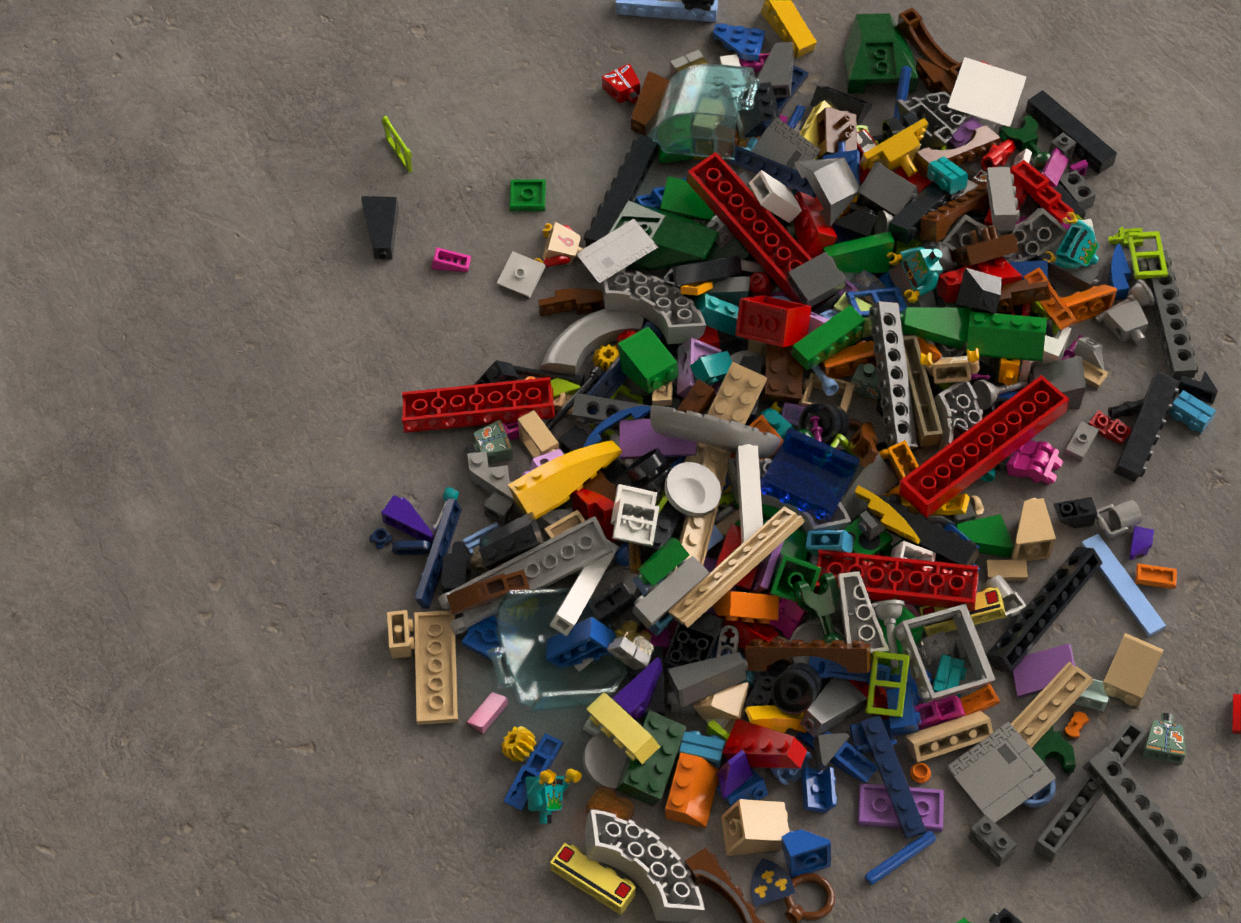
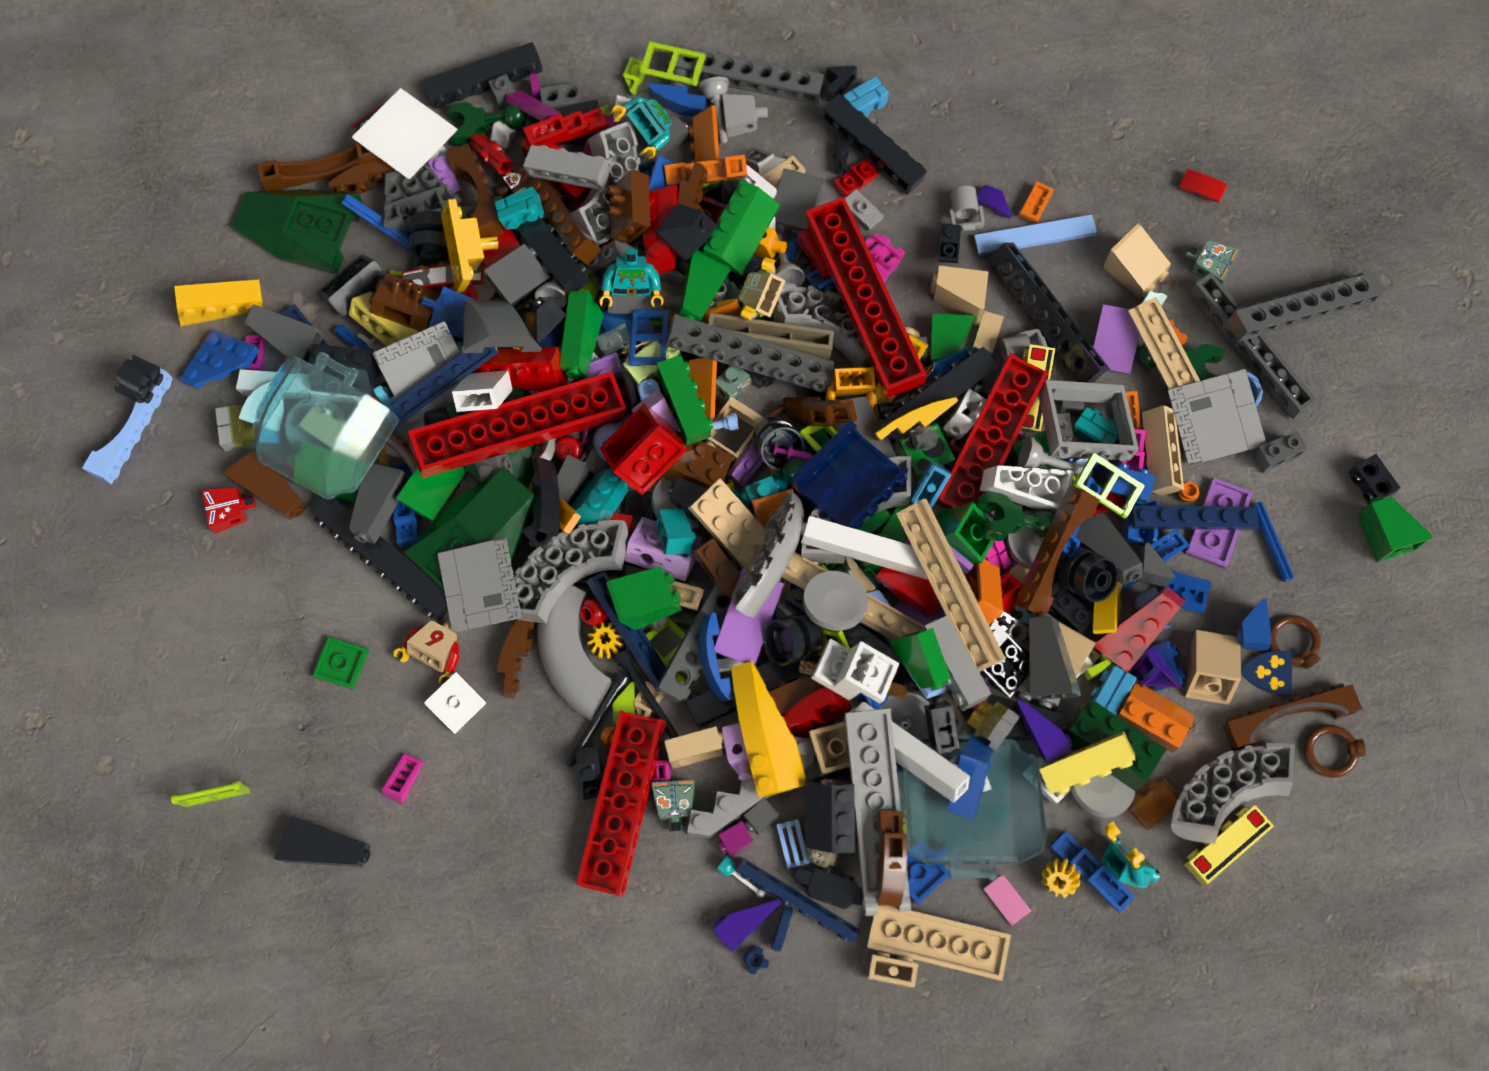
camera: 70 degrees left, 15 degrees up
(473, 494) = (735, 839): none -> magenta brick
(658, 166) = (376, 502): none -> dark grey slope
(816, 279) = (607, 386): dark grey brick -> none

